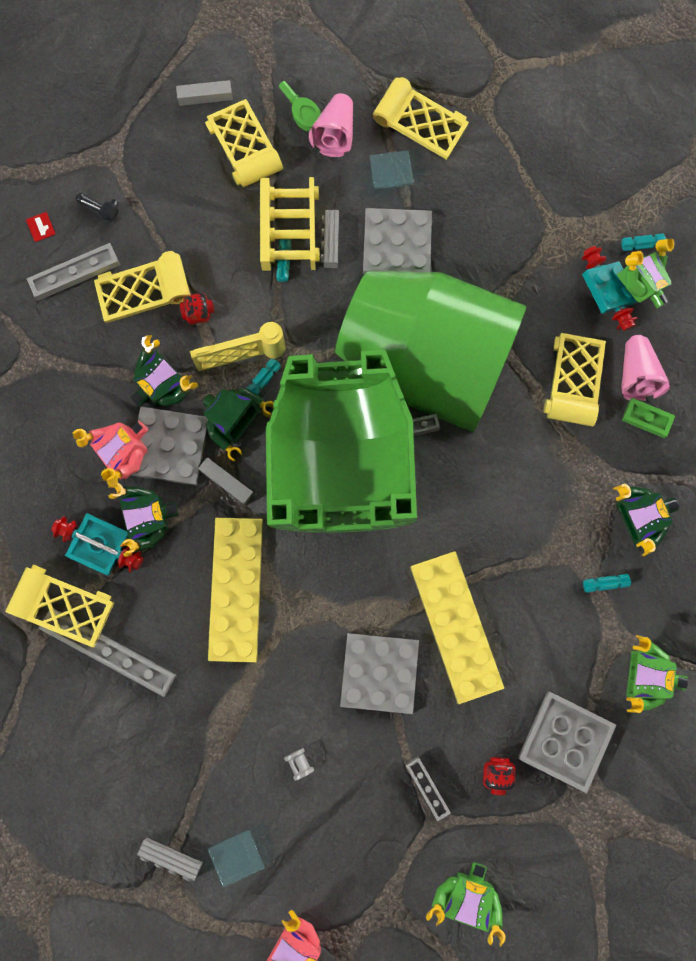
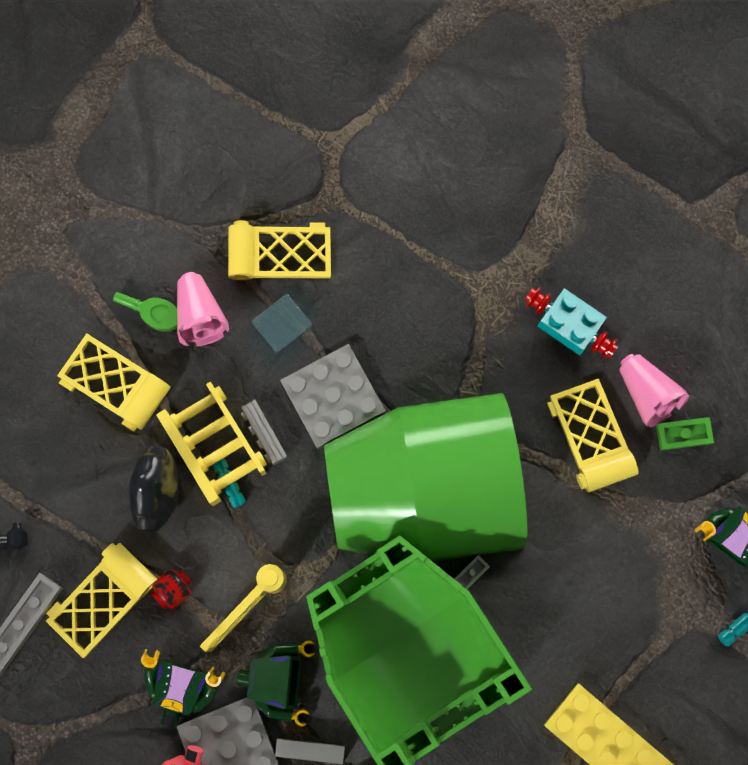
camera: 30 degrees left, 0 degrees up
(204, 93) = (39, 352): light grey piece -> none
(225, 225) = (153, 489): none -> black piece
(264, 376) = (282, 619): teal axle -> none
(641, 242) = (576, 253): teal axle -> none
(647, 275) = (602, 290): torso -> none

